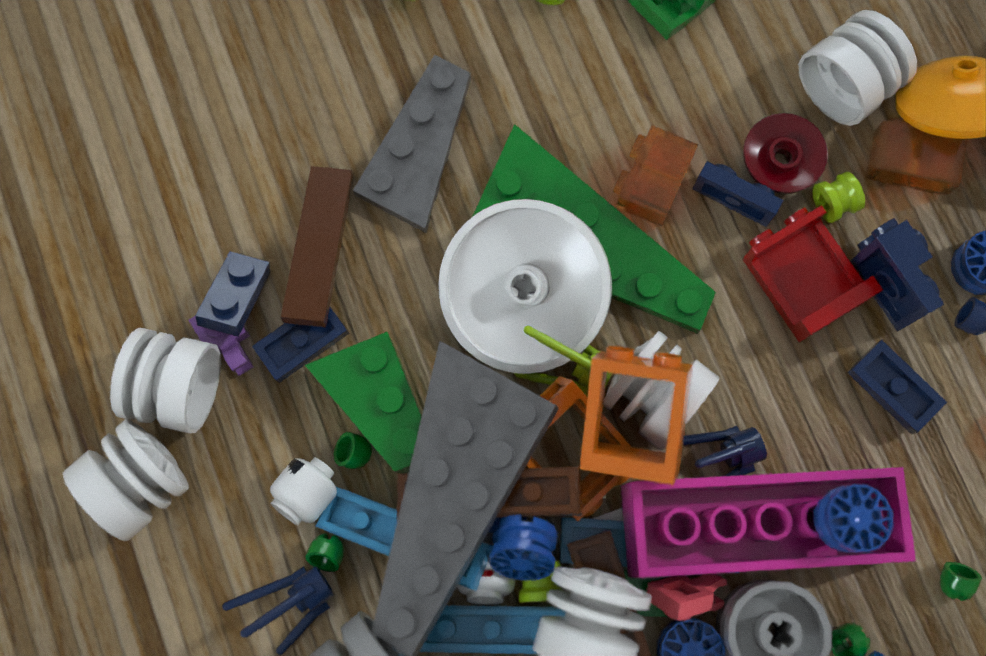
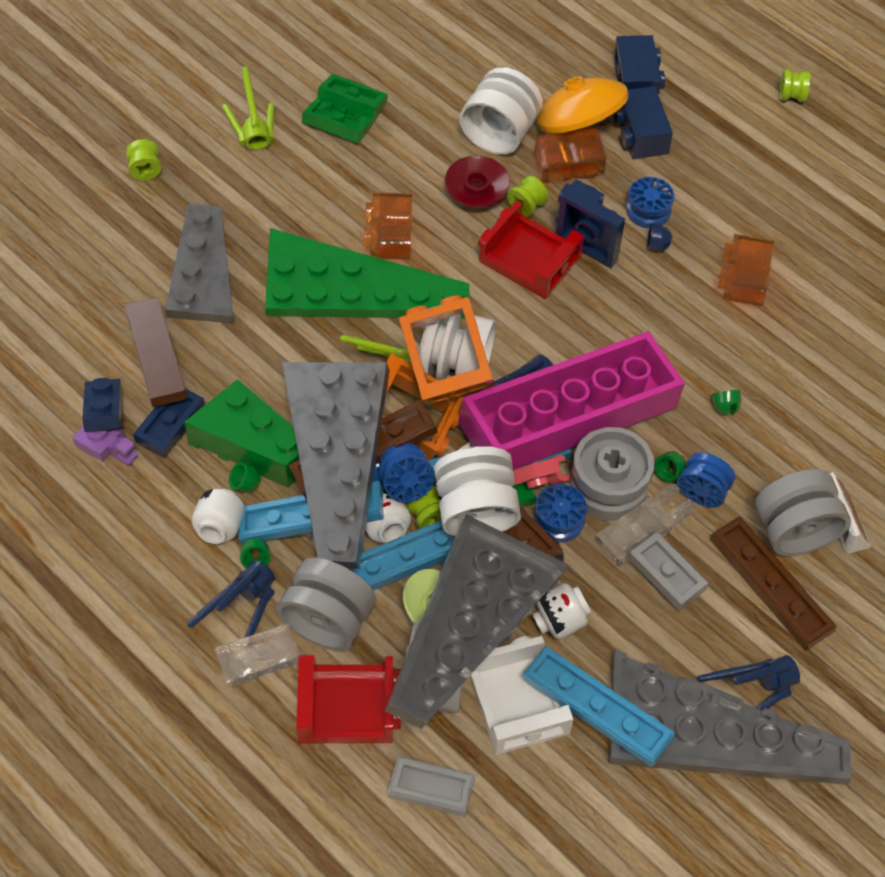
camera: 30 degrees left, 20 degrees down
(117, 488) = (75, 548): white wheel -> none
(165, 380) = (77, 472): white wheel -> none
(519, 269) = (320, 301): white dish -> none
(747, 199) = (454, 217): dark blue plate -> none
(852, 519) = (621, 354): blue wheel -> none
(897, 387) = (625, 297): dark blue plate -> none

